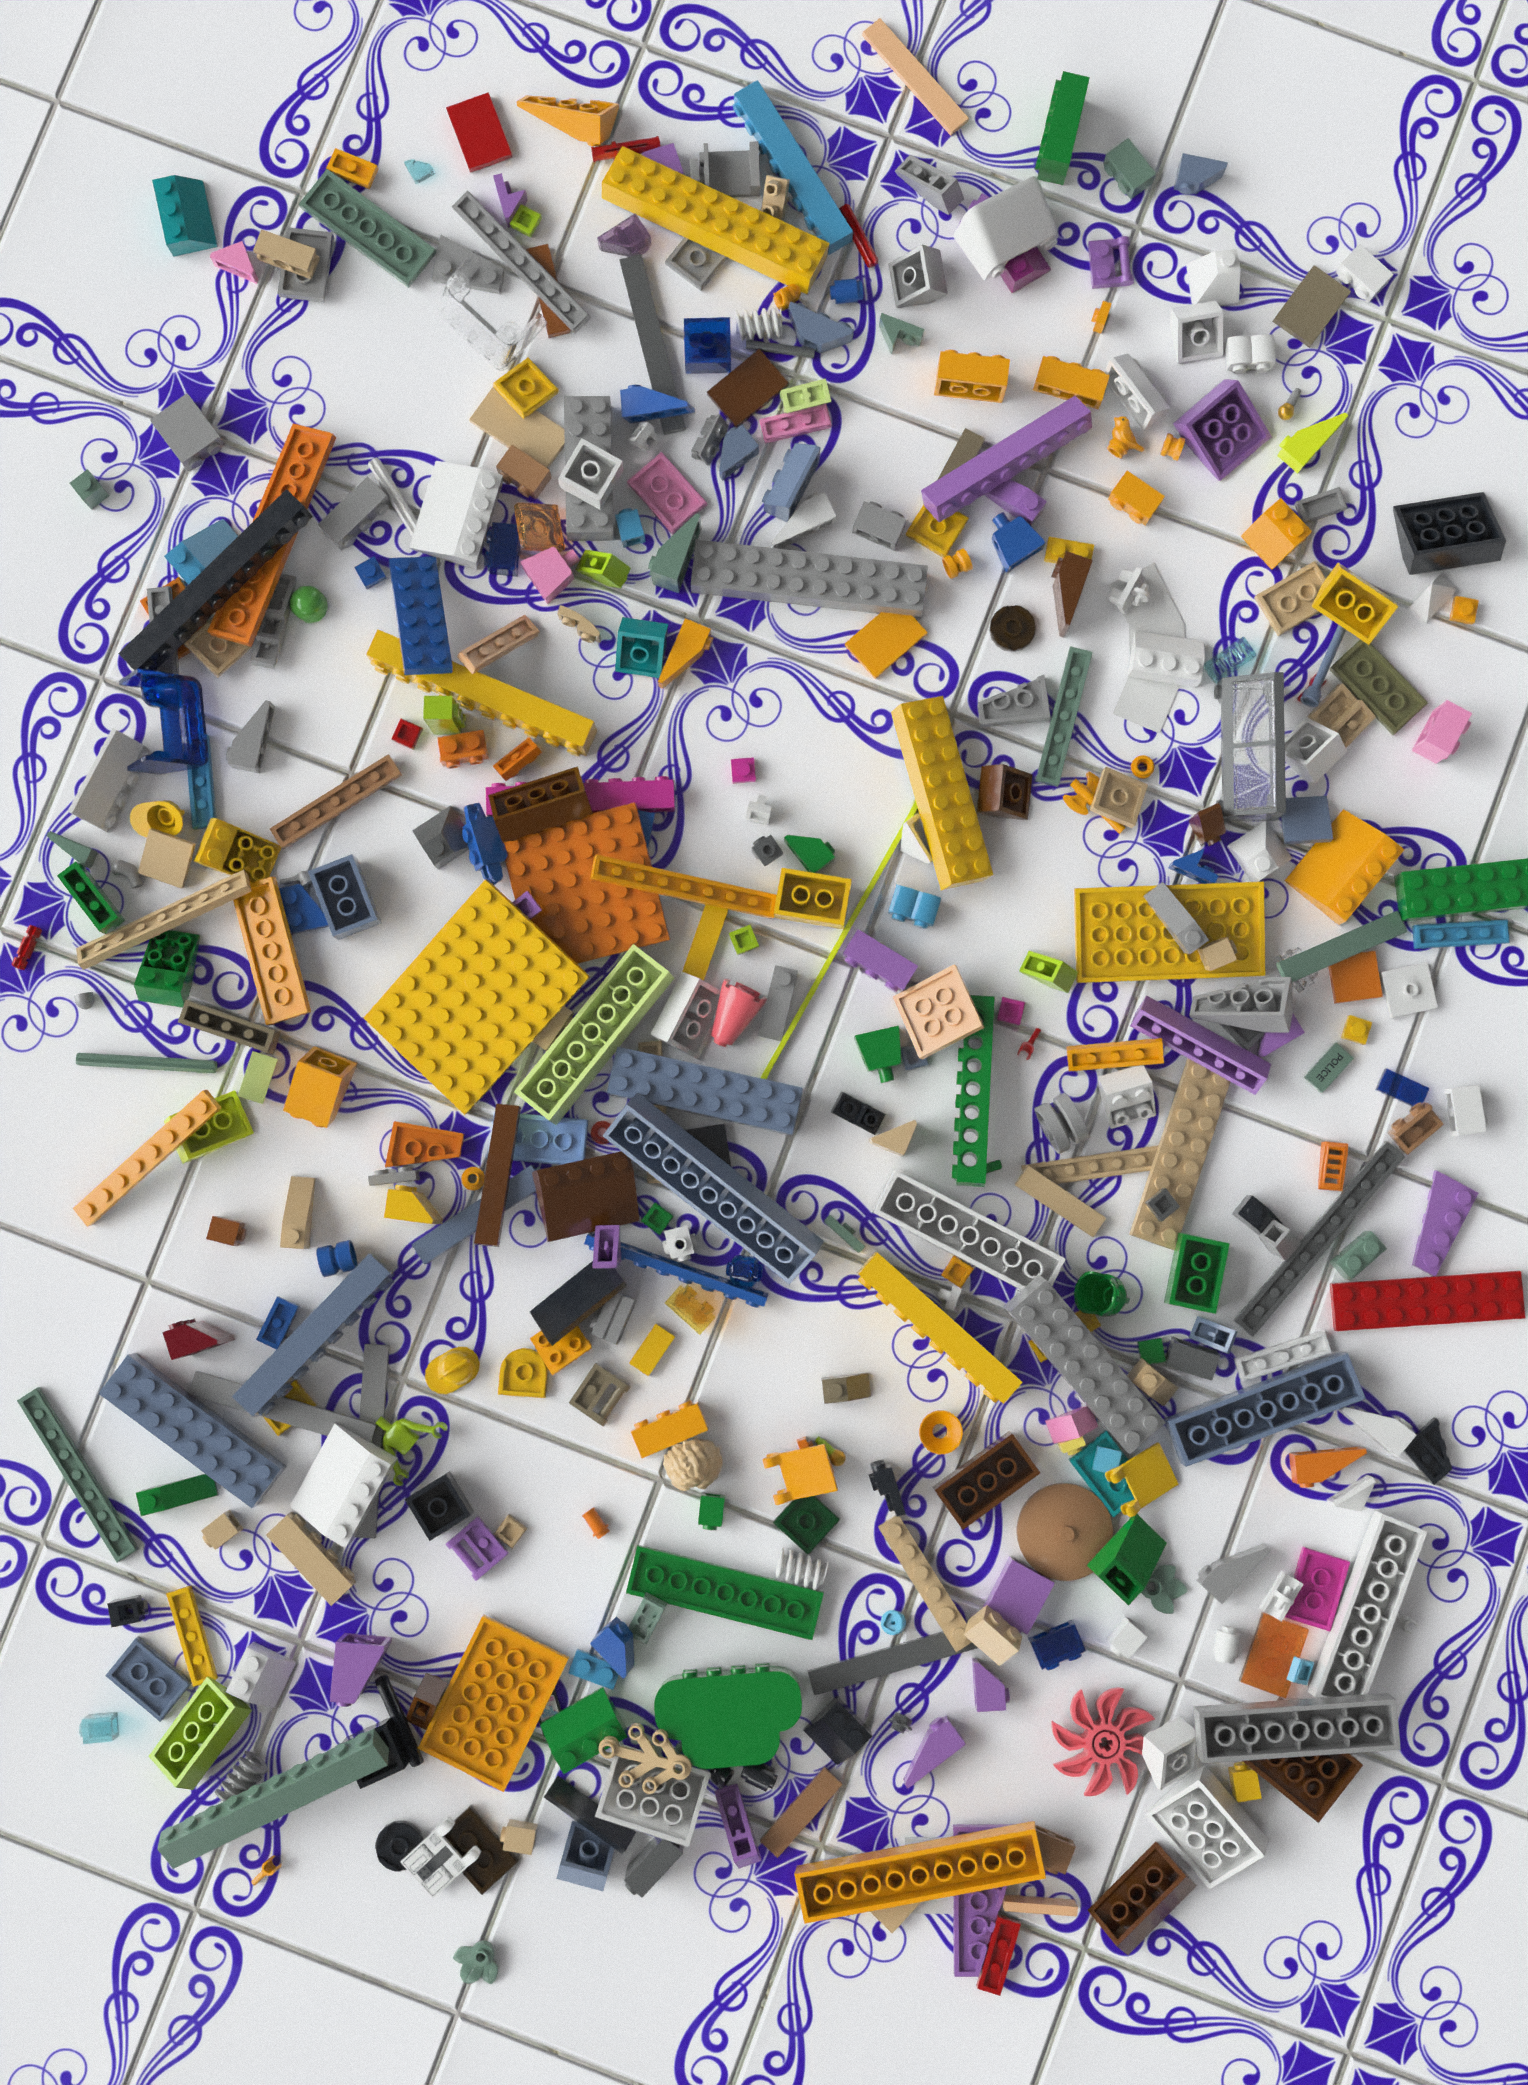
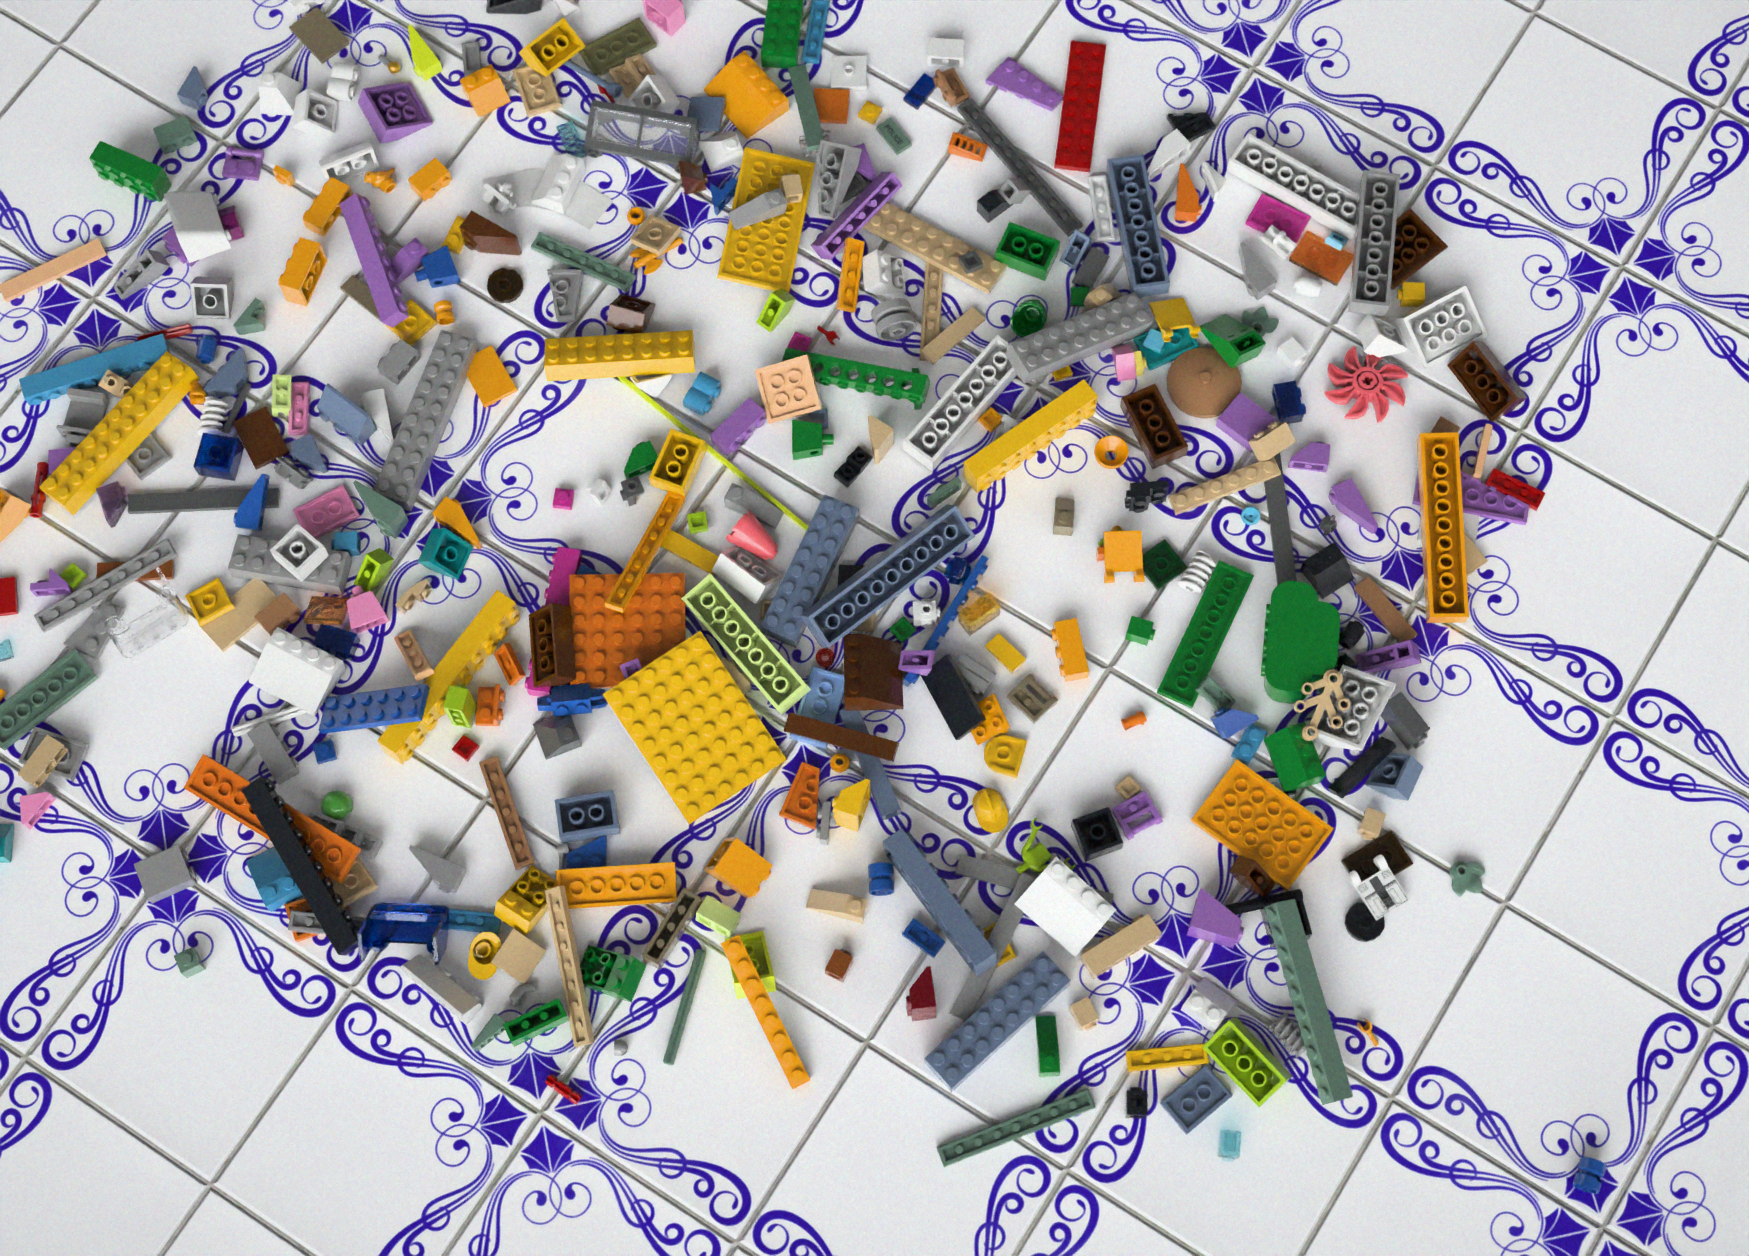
camera: 75 degrees left, 15 degrees down
(641, 434) = (274, 521): white tile -> none
(693, 1464) = (1101, 636): tan hair -> none
(1172, 446) = (398, 147): light orange wheel -> none
(1358, 1255) = (1037, 142): sand green brick -> none

